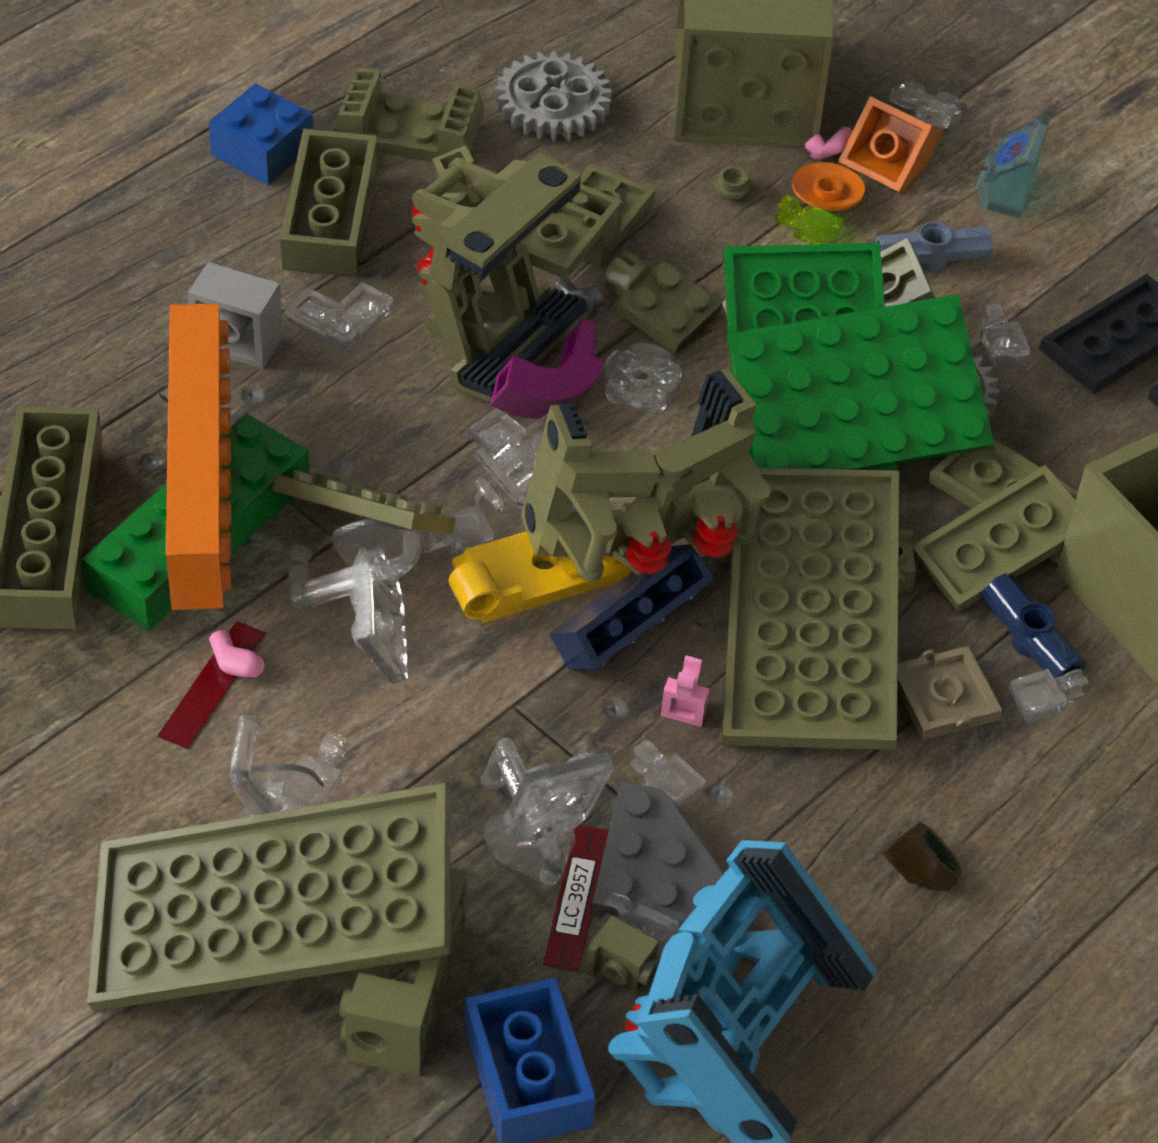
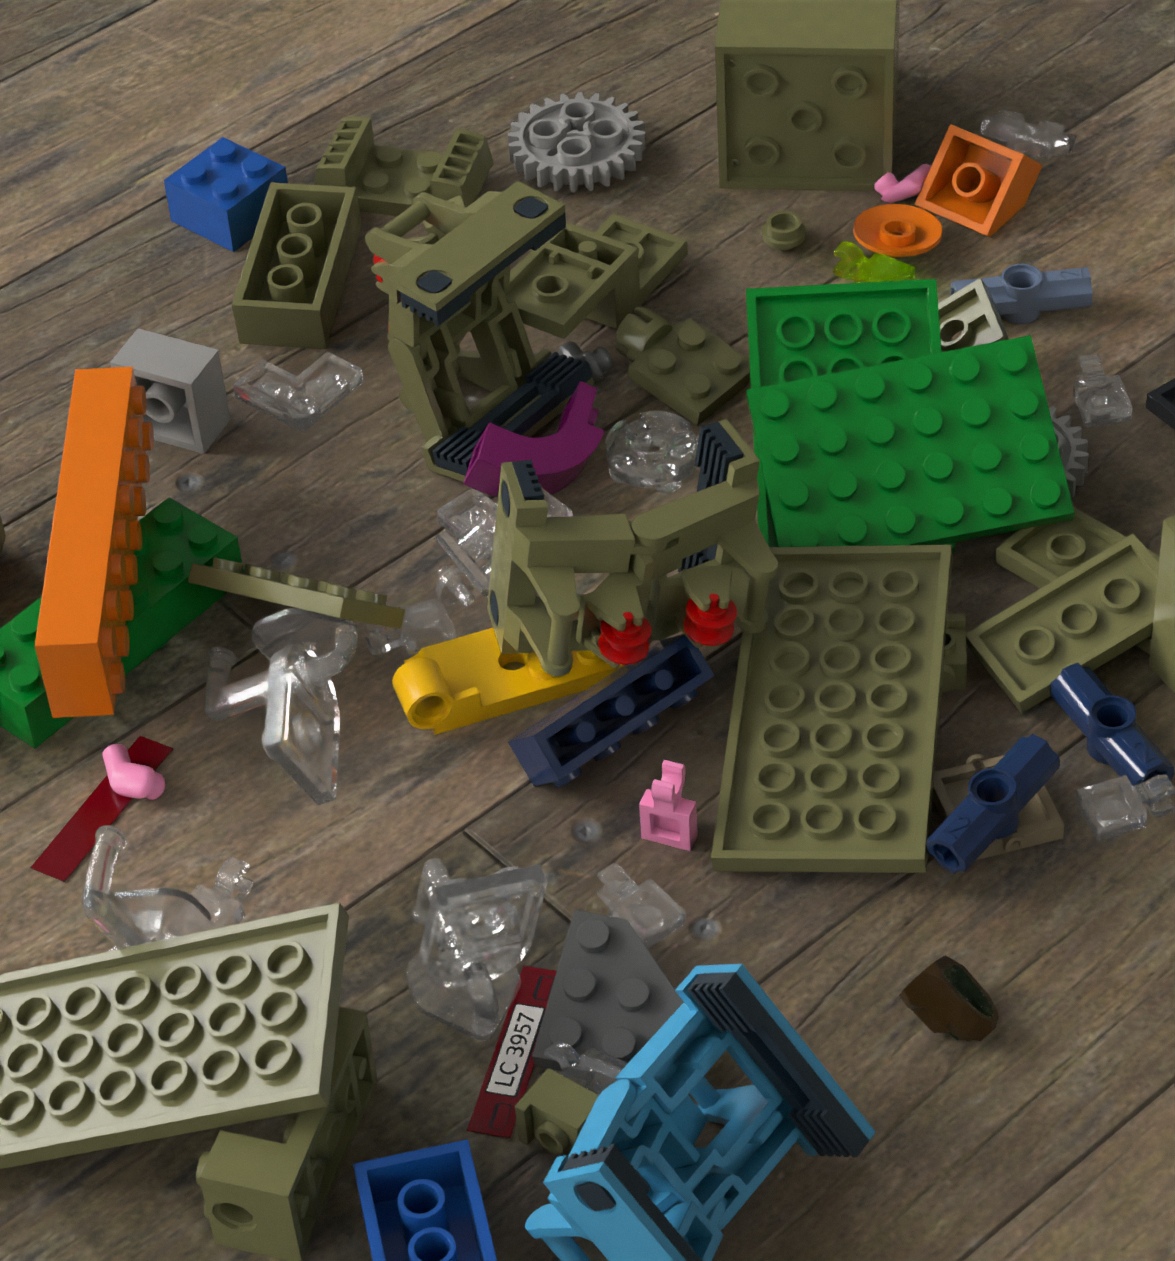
camera: 10 degrees right, 5 degrees down
(939, 710) = (993, 804): none -> dark blue piece
(1012, 169) = (1126, 203): clear light blue slope -> none

